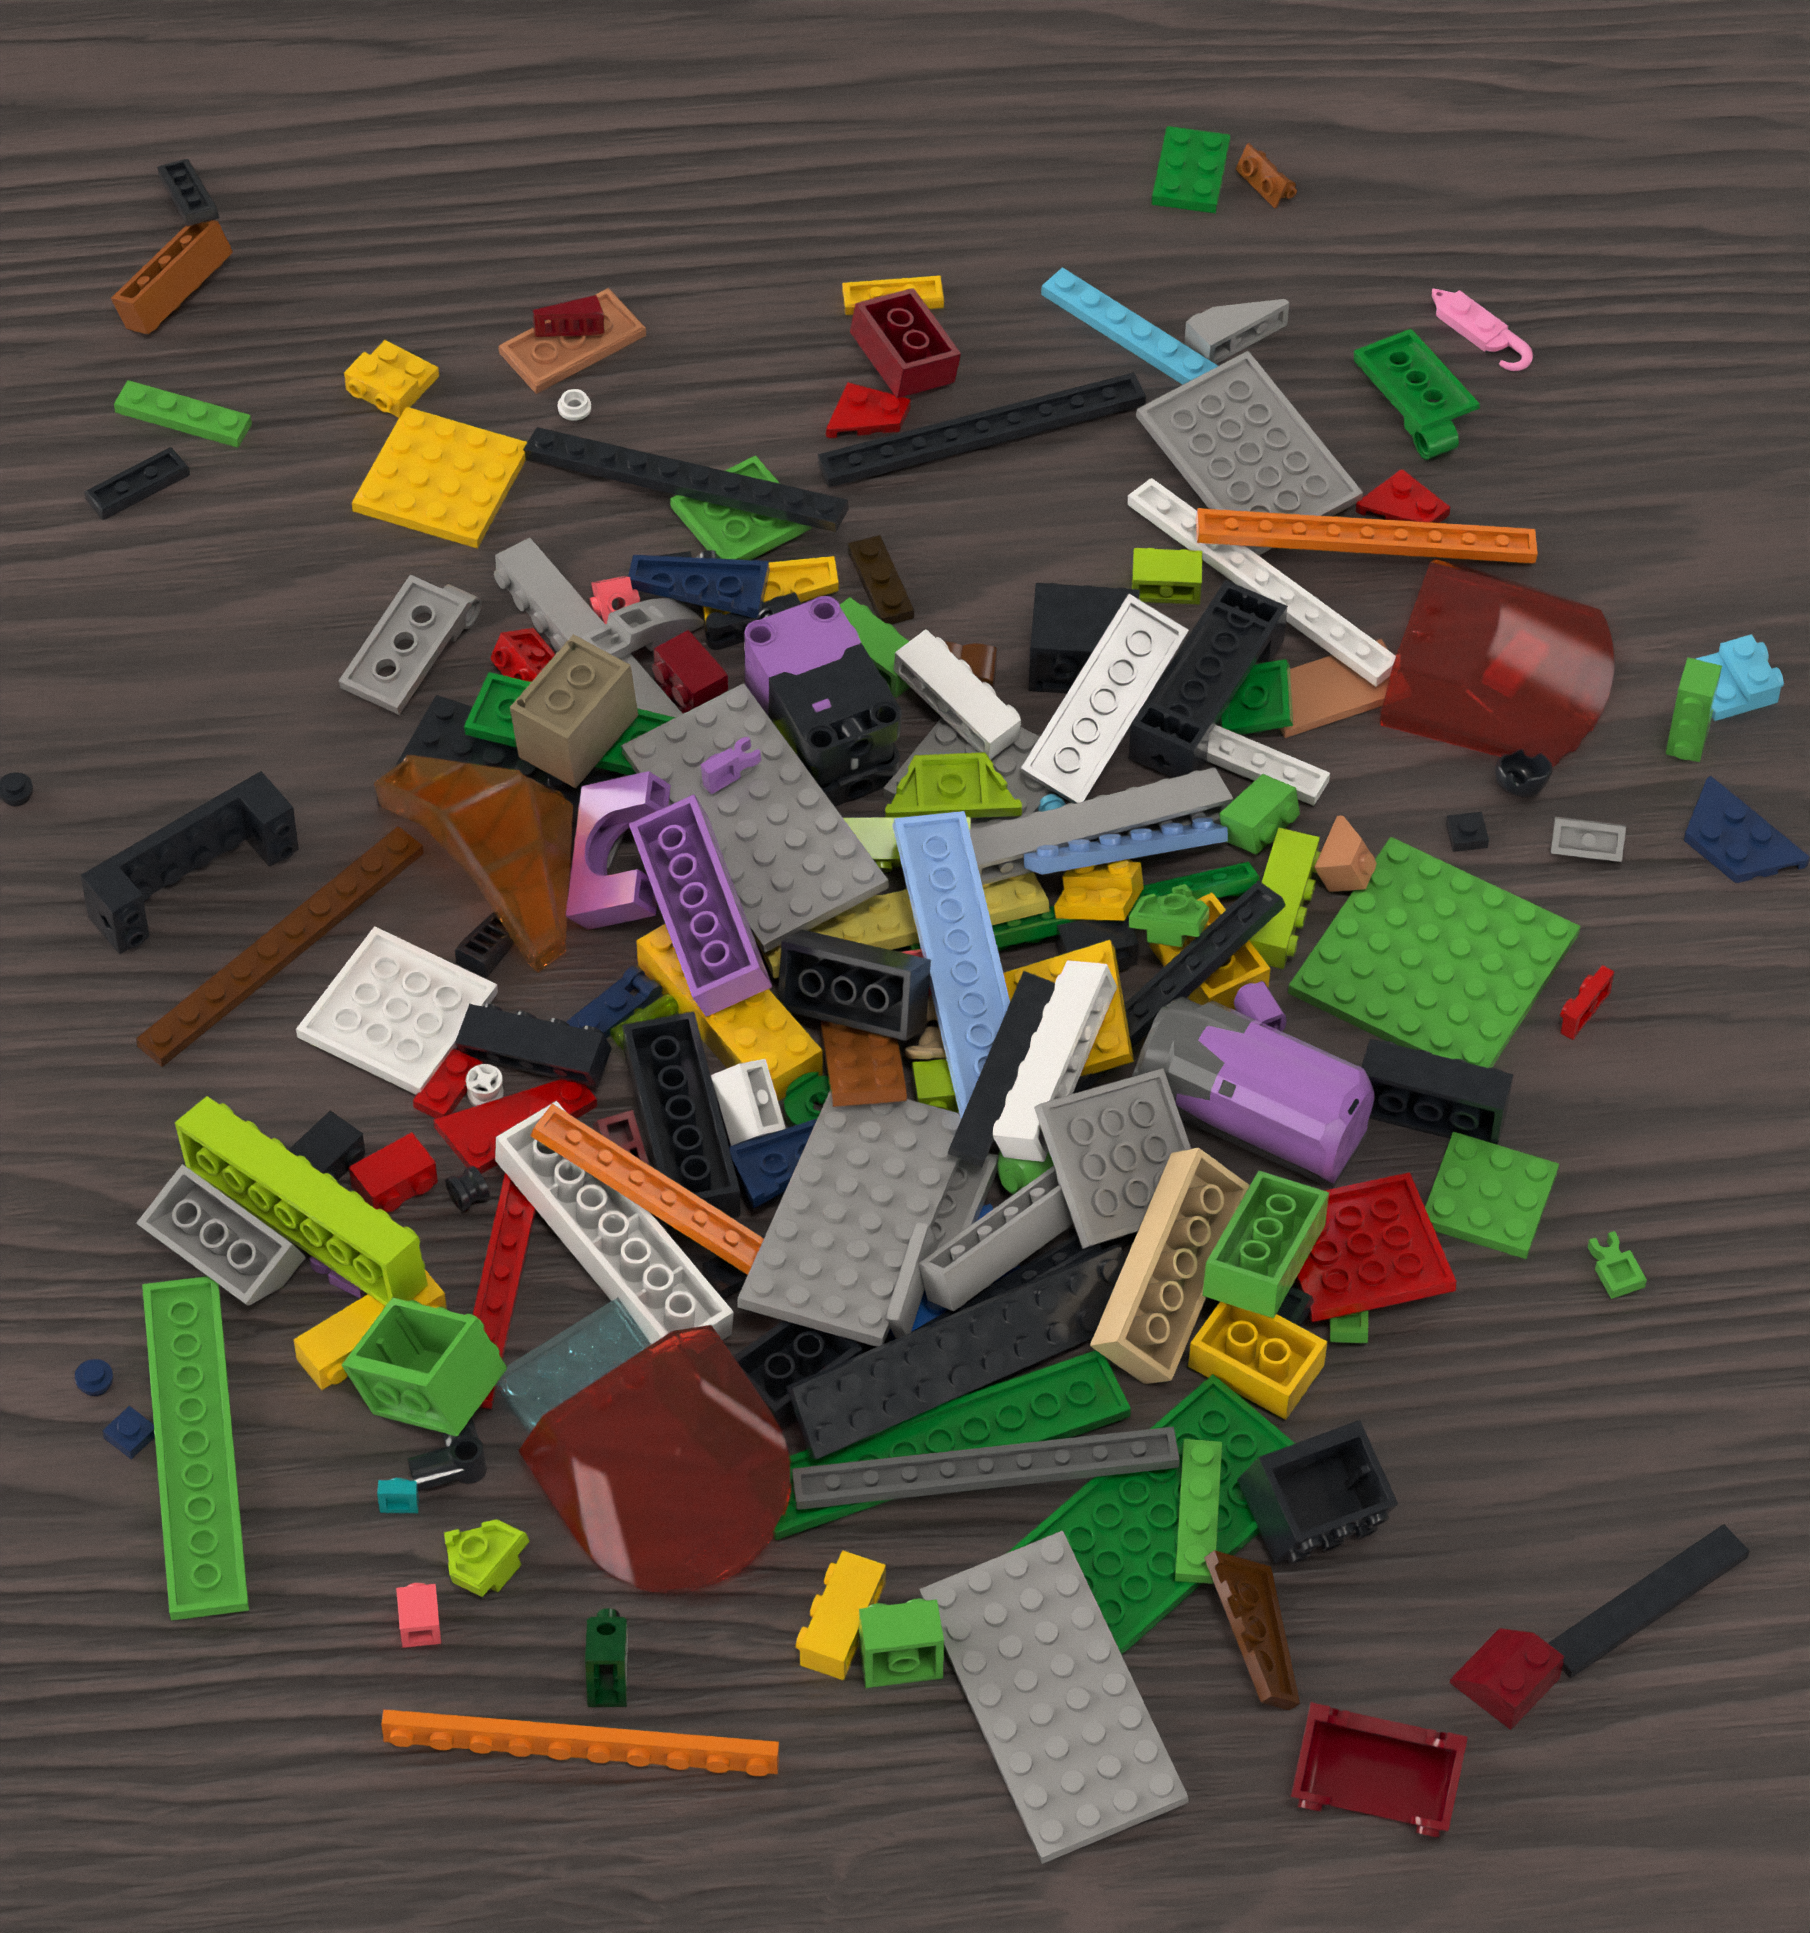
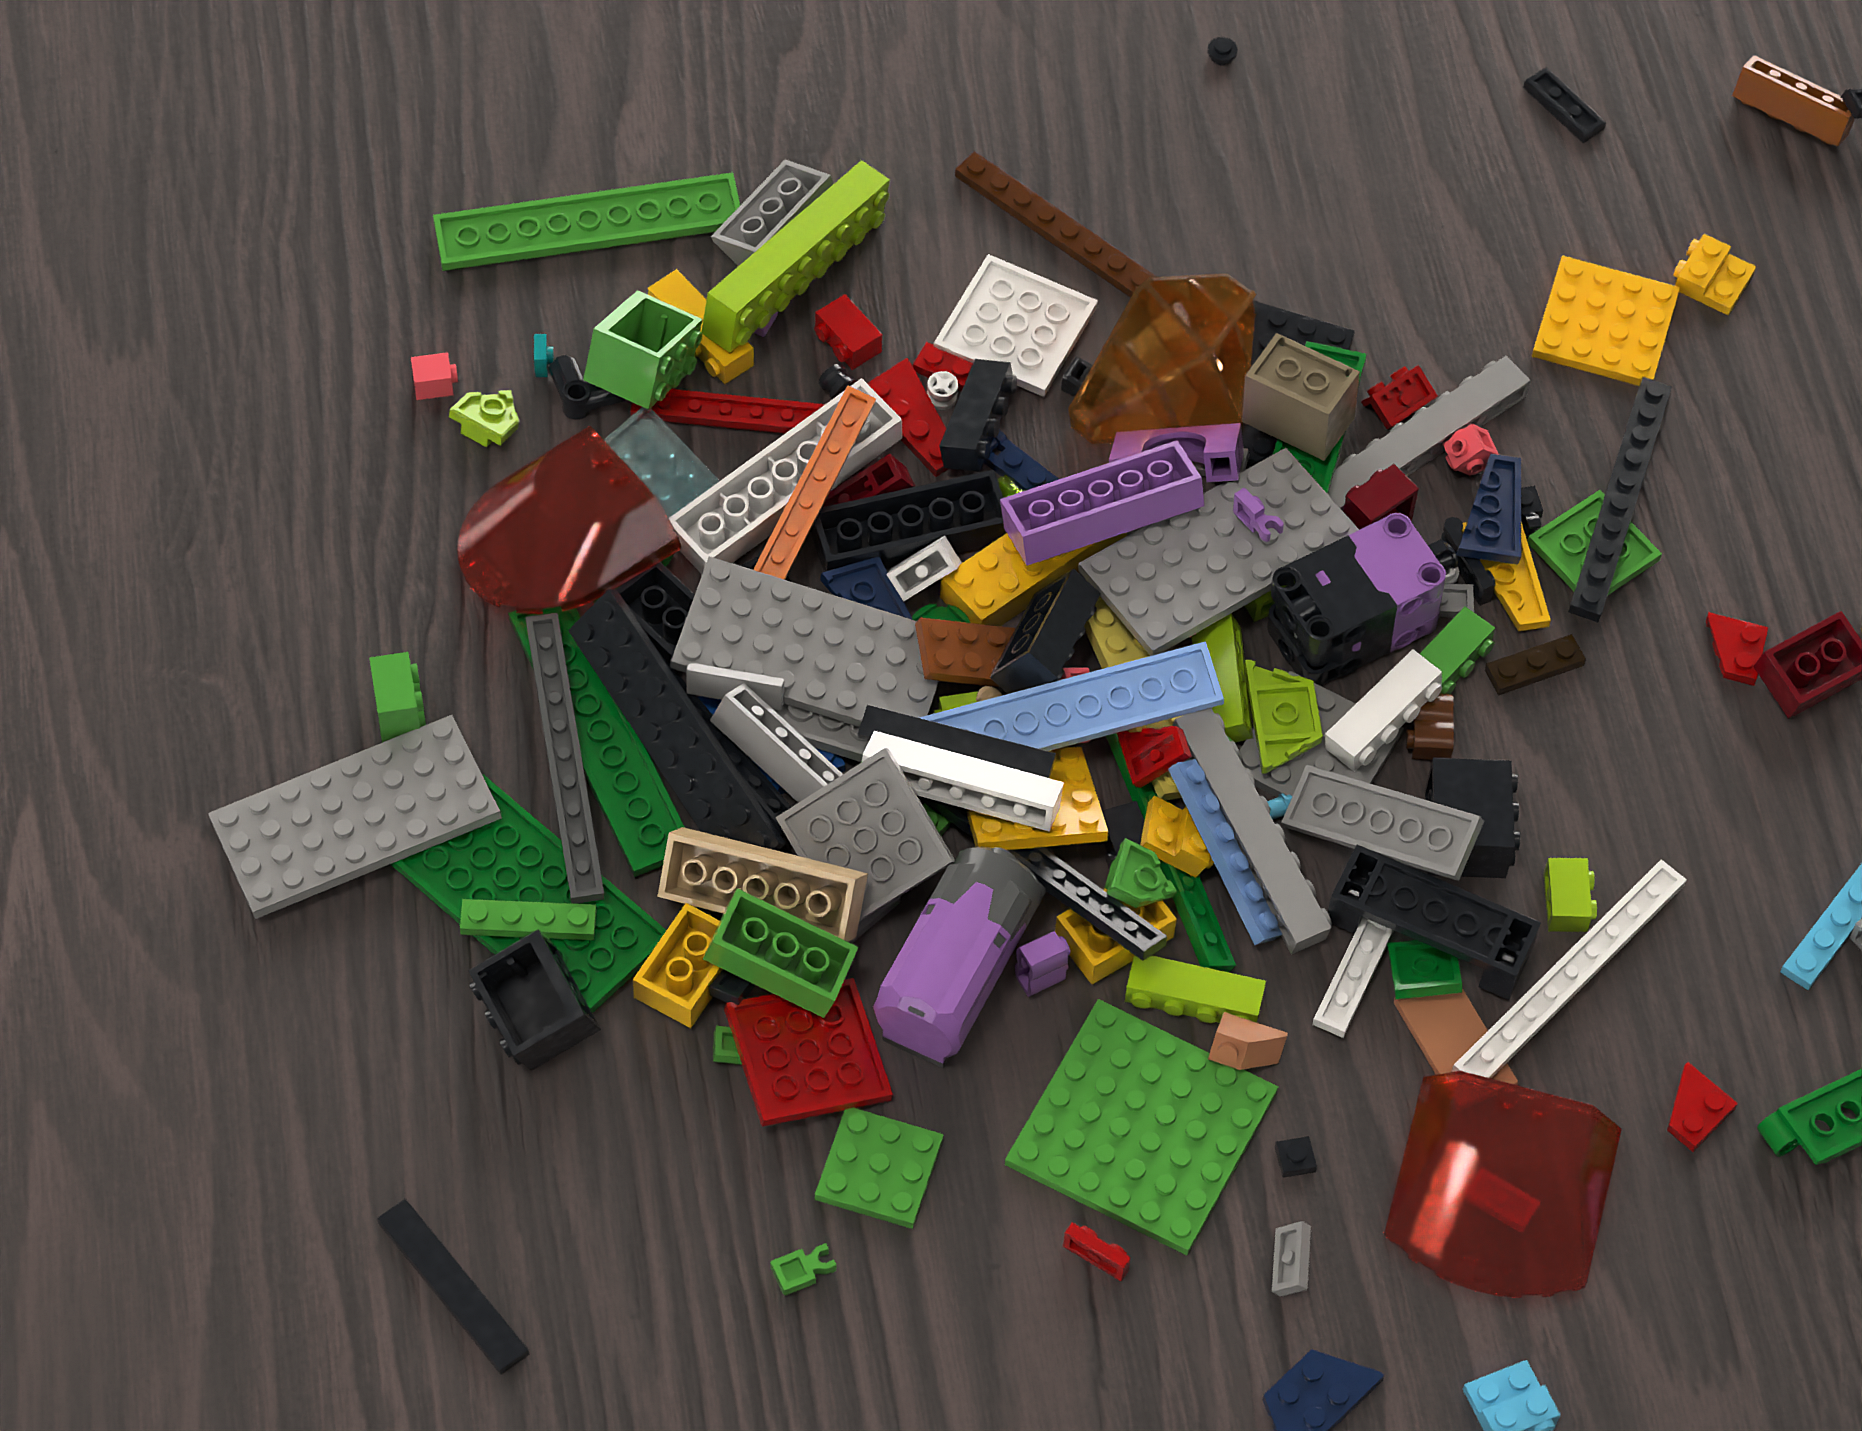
camera: 85 degrees right, 5 degrees up
(94, 1377) = (650, 153): dark blue plate -> none
(122, 883) = (1195, 197): black plate -> none
(129, 1432) = (601, 179): dark blue plate -> none
(183, 413) = (1648, 130): bright green plate -> none
(331, 1145) = (864, 283): black brick -> none
(451, 613) = (1436, 329): light grey hinge -> none
(552, 359) = (1785, 411): nougat tile -> none
(570, 318) = (1798, 399): dark red slope -> none
(574, 405) = (1707, 409): white plate -> none
(578, 1741) = (314, 501): orange plate -> none
(606, 1645) = (389, 498): dark green torso -> none
(642, 625) = (1434, 463): light grey slope -> none
(834, 1629) = (439, 664): yellow brick -> none
(981, 429) = (1730, 742): black plate -> none
(1011, 893) = (1153, 752): none -> red wing
(1247, 445) = (1726, 961): light grey plate -> none
(1256, 1619) = (418, 967): reddish brown wing -> none
(1259, 812) = (1287, 970): bright green brick -> none
(1366, 535) = (1636, 1065): orange plate -> none
(1379, 1768) = (289, 1058): dark red windscreen -> none
(1436, 1092) = (972, 1108): black brick -> none
(1509, 1674) = (373, 1166): dark red slope -> none
(1523, 774) = (1363, 1199): black hair -> none
(1693, 709) = (1437, 1341): bright green arch -> none

